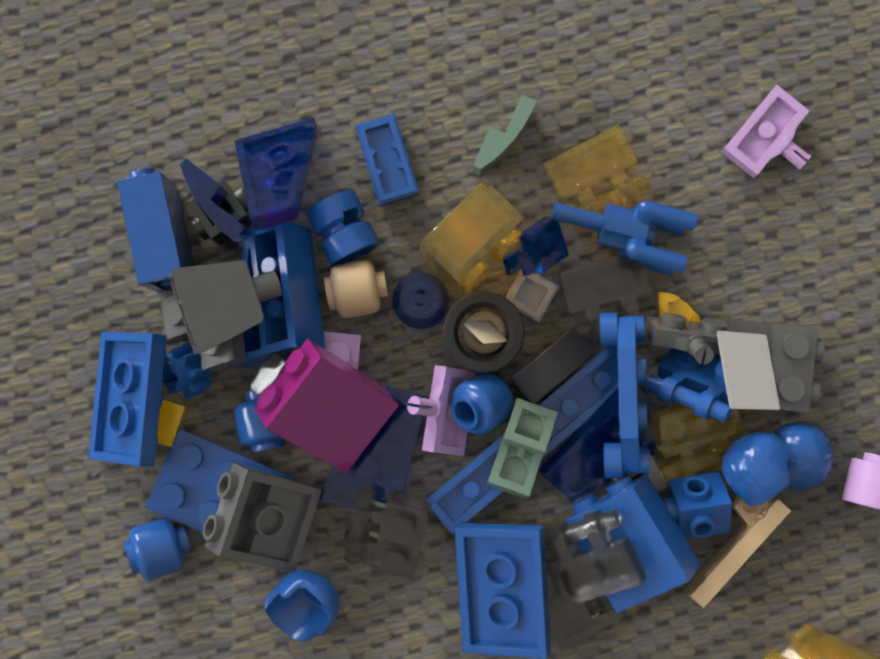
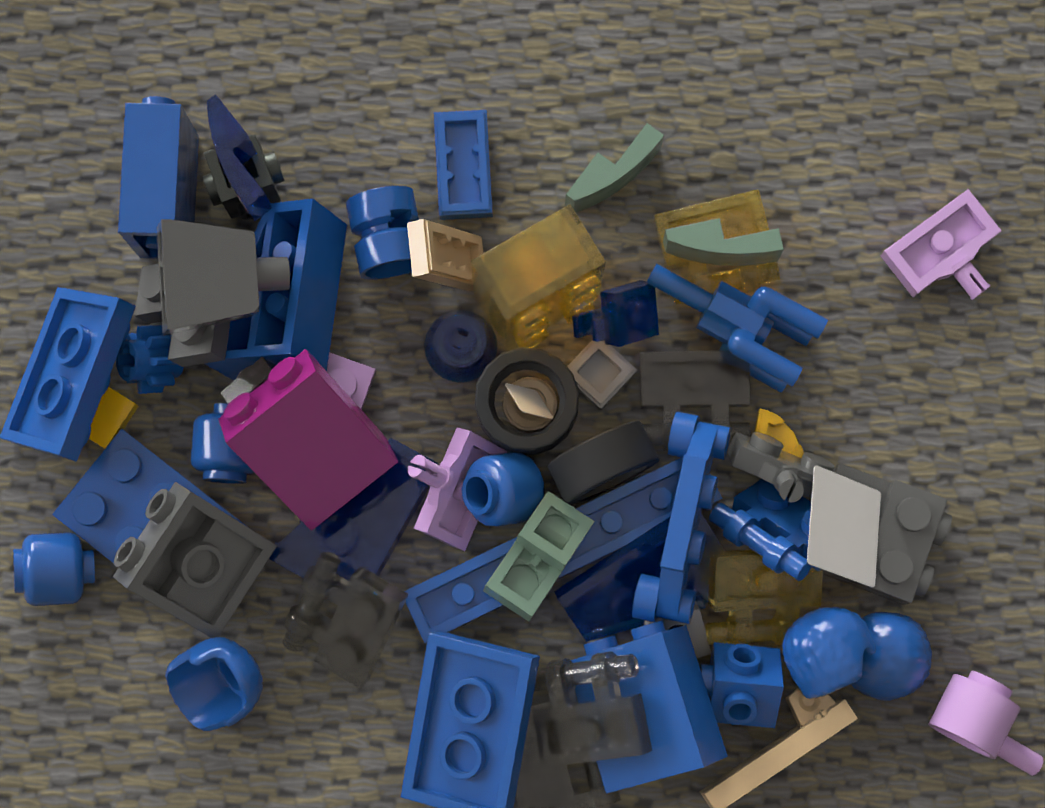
camera: 15 degrees right, 5 degrees down
(276, 171) = (322, 142): clear blue wing -> none
(355, 288) = (383, 310): tan head -> none
(392, 235) = (443, 253): none -> tan plate
(592, 177) = (706, 244): none -> sand green slope

